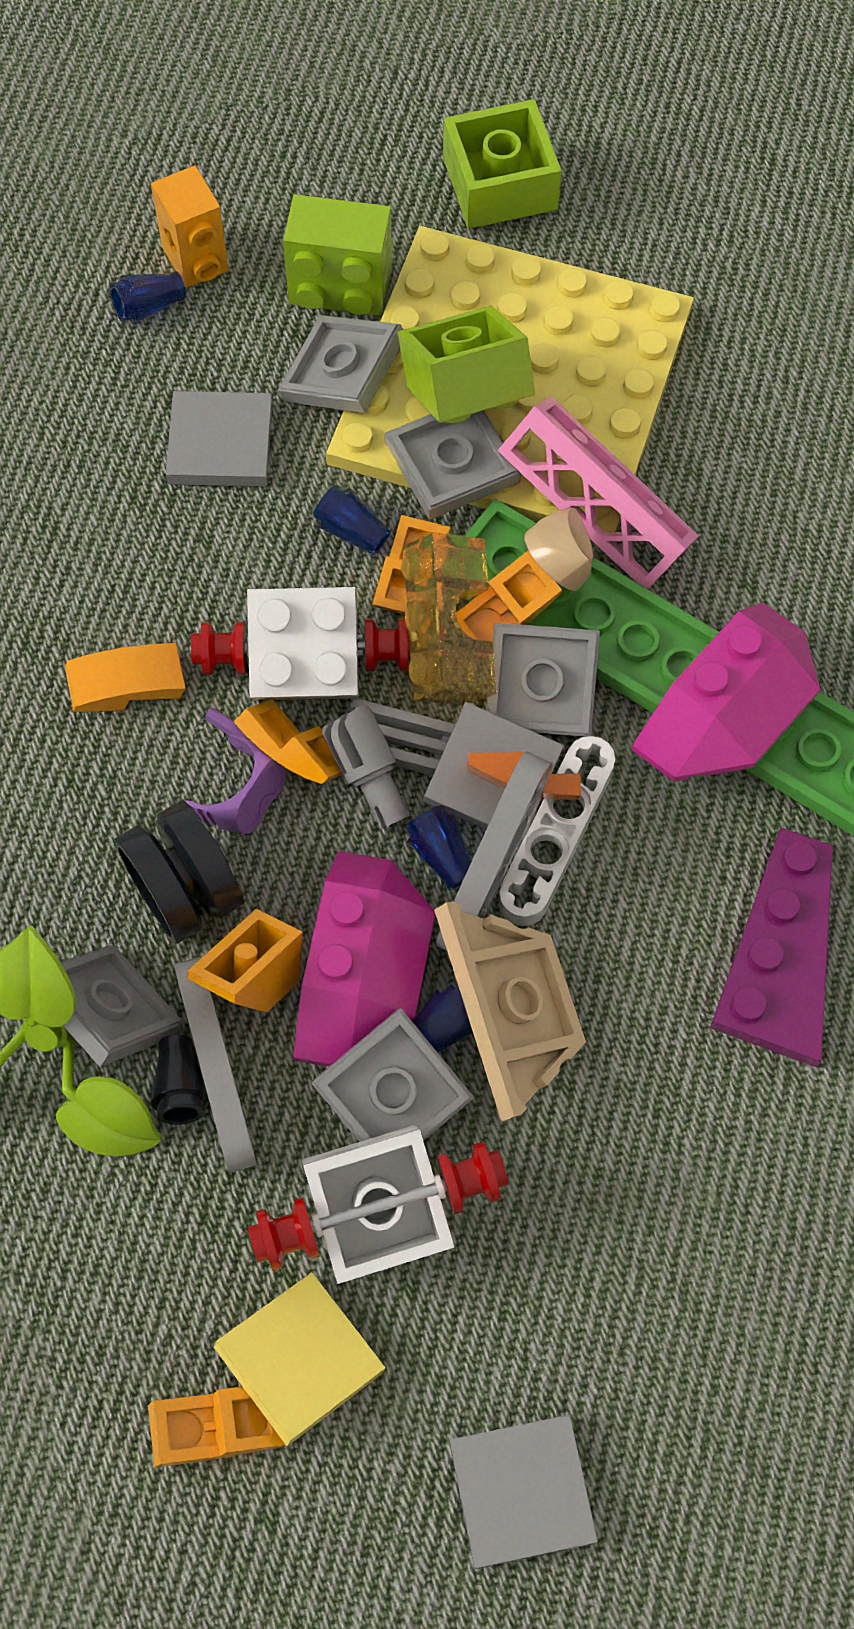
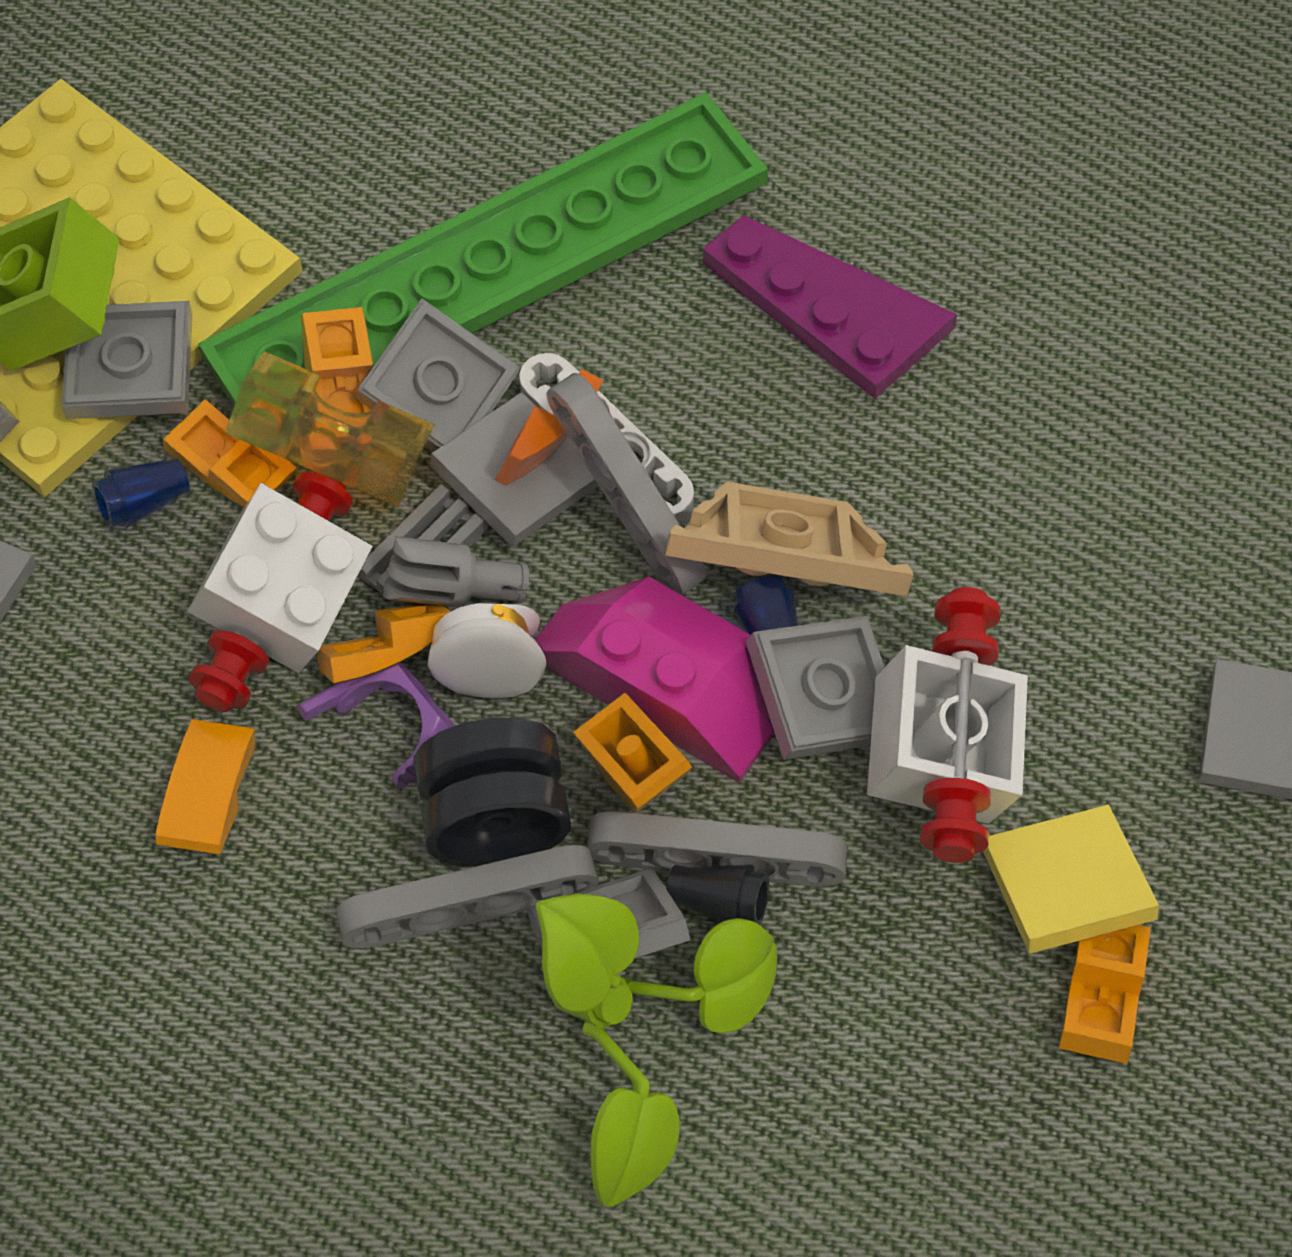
camera: 65 degrees left, 5 degrees down
(103, 897) = (464, 896): none -> light grey beam
(310, 818) = (487, 650): none -> white piece
(440, 845) = (574, 547): clear blue cone -> none
(562, 548) = (313, 286): tan piece -> none
(609, 478) = (250, 222): bright pink fence -> none
(732, 698) = (558, 222): dark pink wedge -> none

